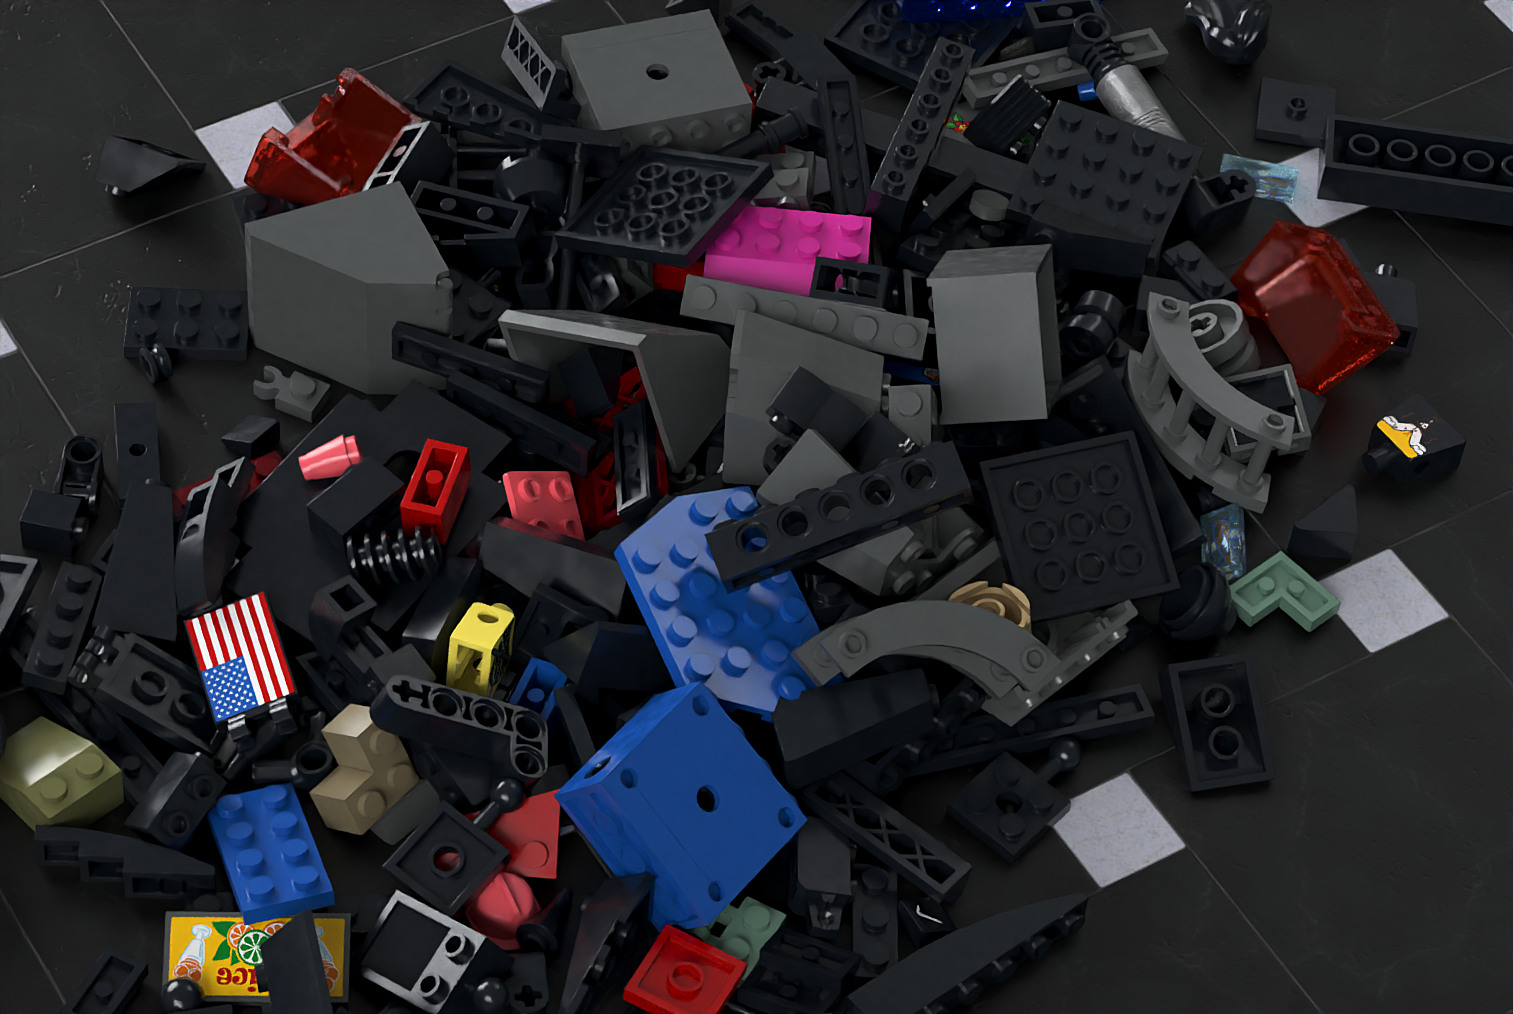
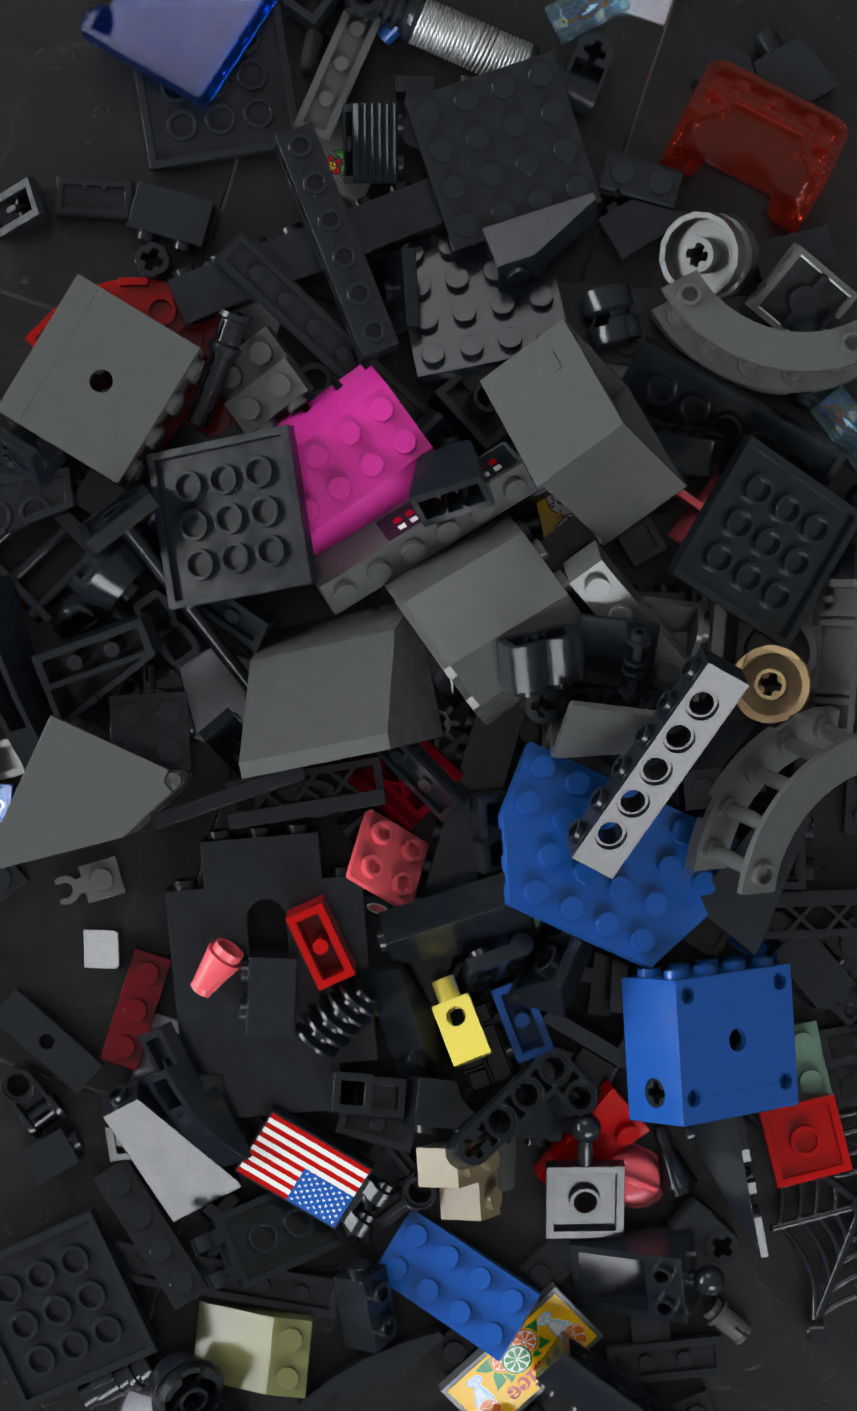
camera: 35 degrees left, 40 degrees up
(988, 205) = (431, 249): dark grey tile -> none

